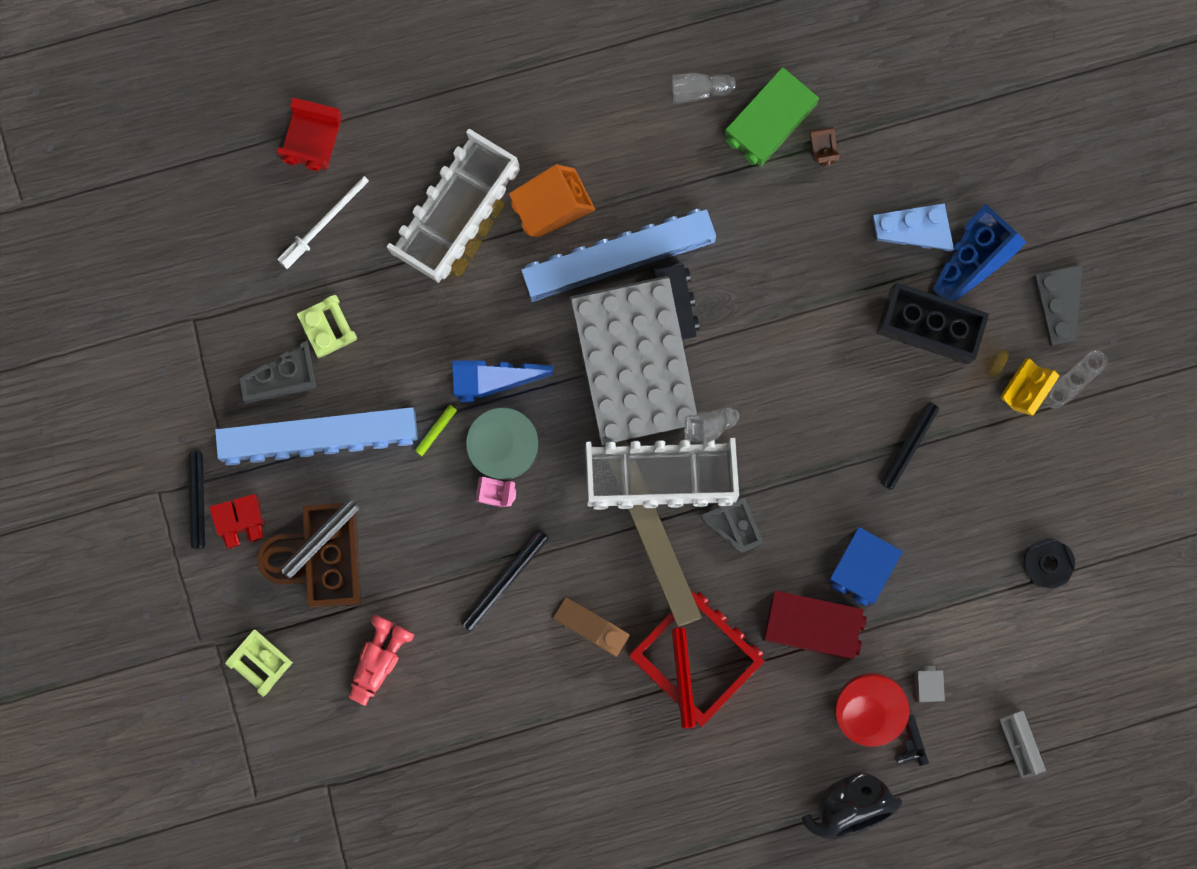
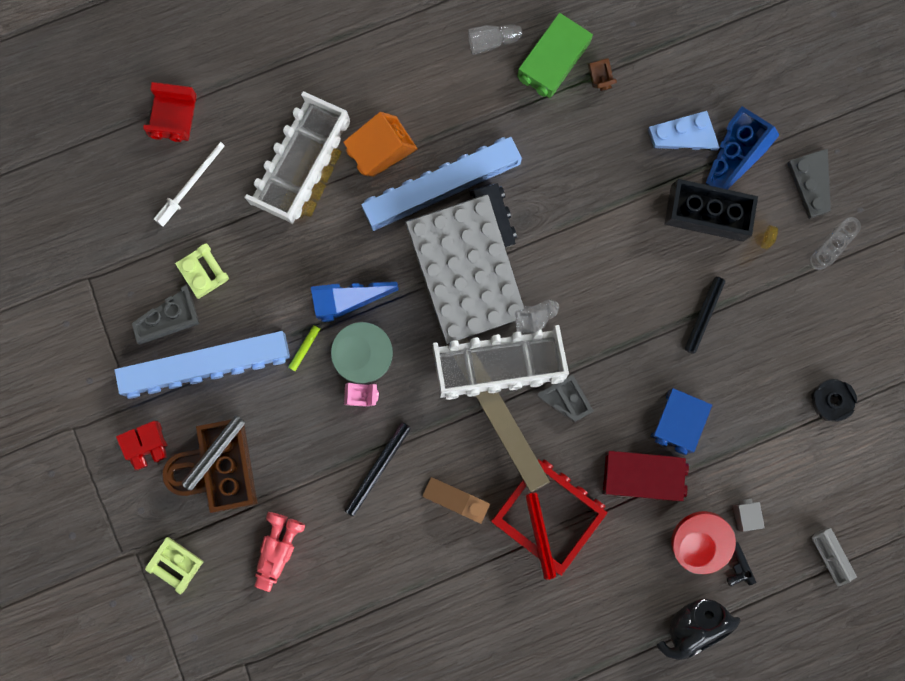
camera: 10 degrees left, 0 degrees up
(196, 494) = (106, 431): black axle -> none
(1029, 387) = (798, 254): yellow bracket -> none

